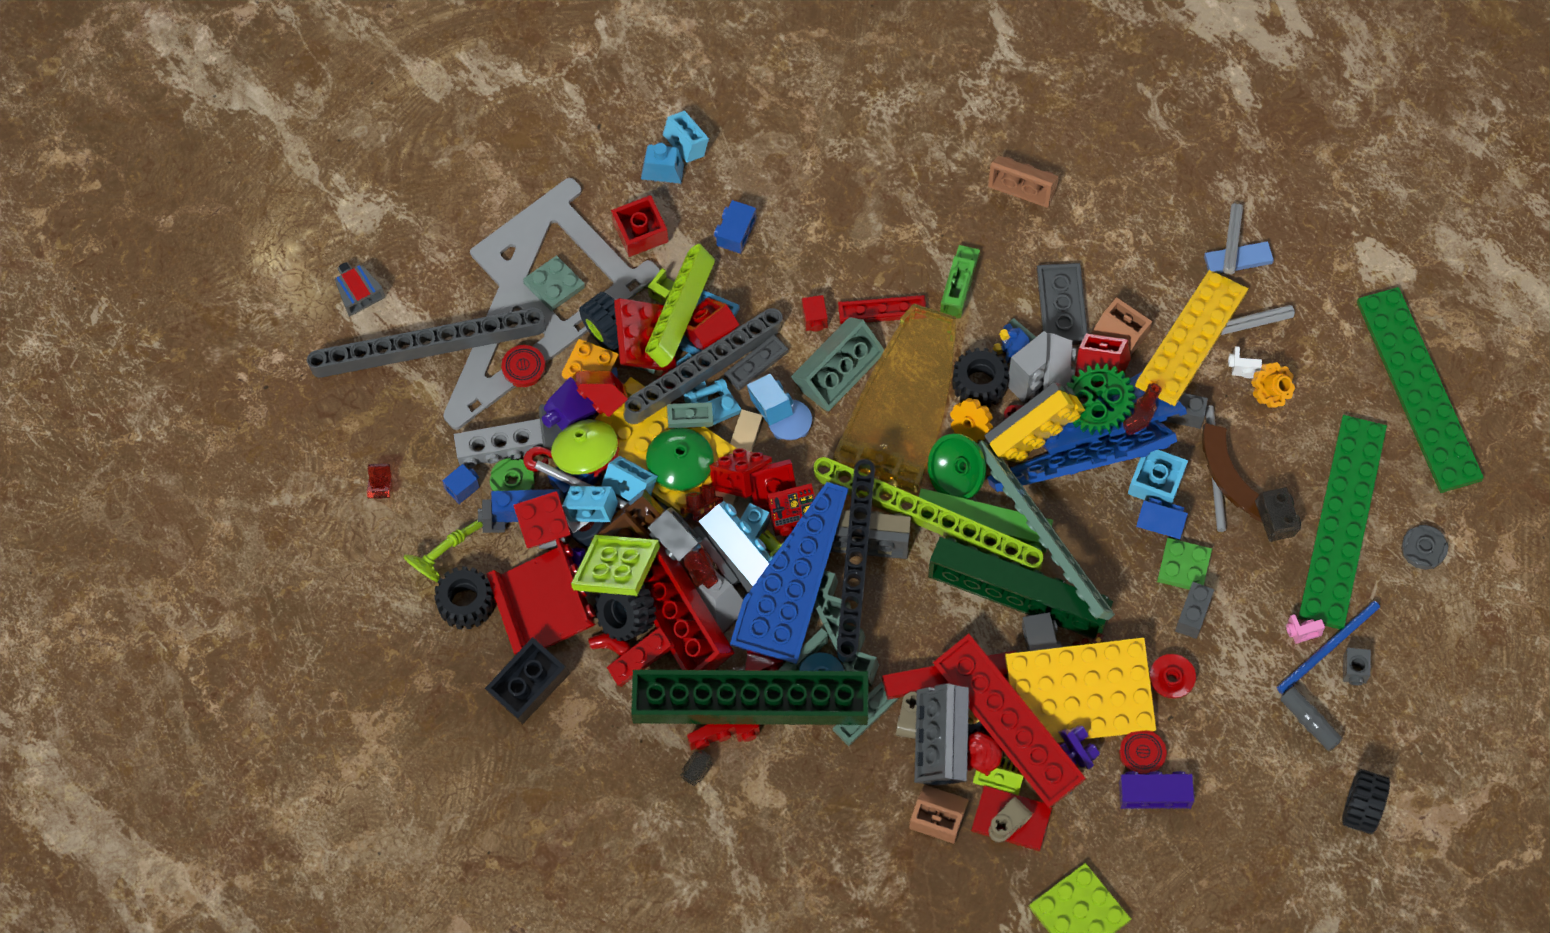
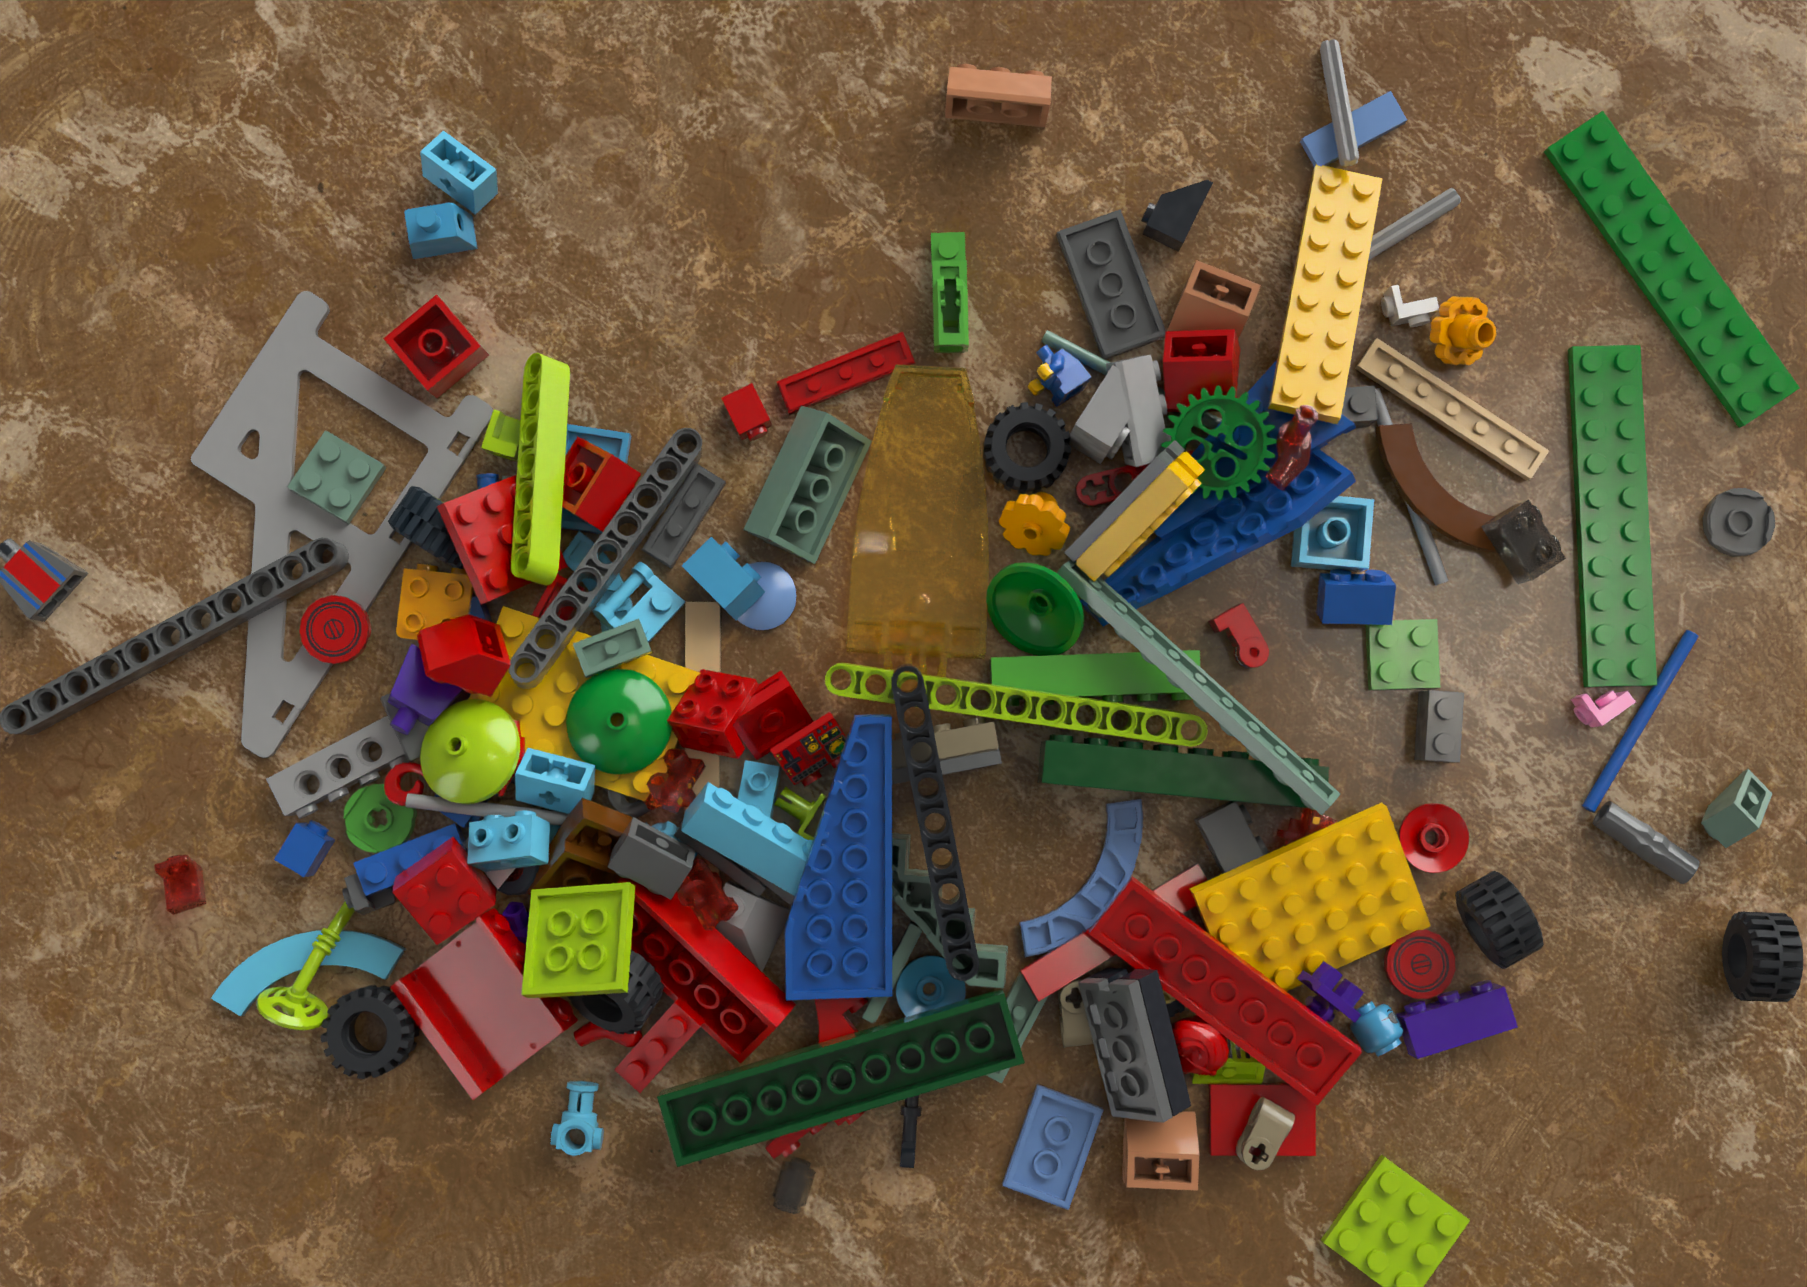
camera: 20 degrees left, 20 degrees up
(423, 543) = (289, 955): none -> medium azure tile
(527, 680) = (505, 1136): black brick -> none
(574, 687) = (580, 1118): none -> medium azure connector
(735, 227) = (583, 303): blue brick -> none
(785, 746) = (911, 1112): none -> black piece
(870, 796) = (1052, 1146): none -> medium blue tile
(971, 623) = (1101, 888): none -> medium blue tile
(1084, 522) = (1244, 635): none -> red leg
(1102, 780) = (1377, 1028): none -> dark azure head
(1113, 273) = (1174, 214): none -> black slope
(1199, 730) = (1499, 919): none -> black tyre
(1256, 430) = (1452, 409): none -> tan plate
(1359, 657) = (1677, 735): dark grey brick -> none
(1376, 714) = (1737, 809): none -> sand green slope

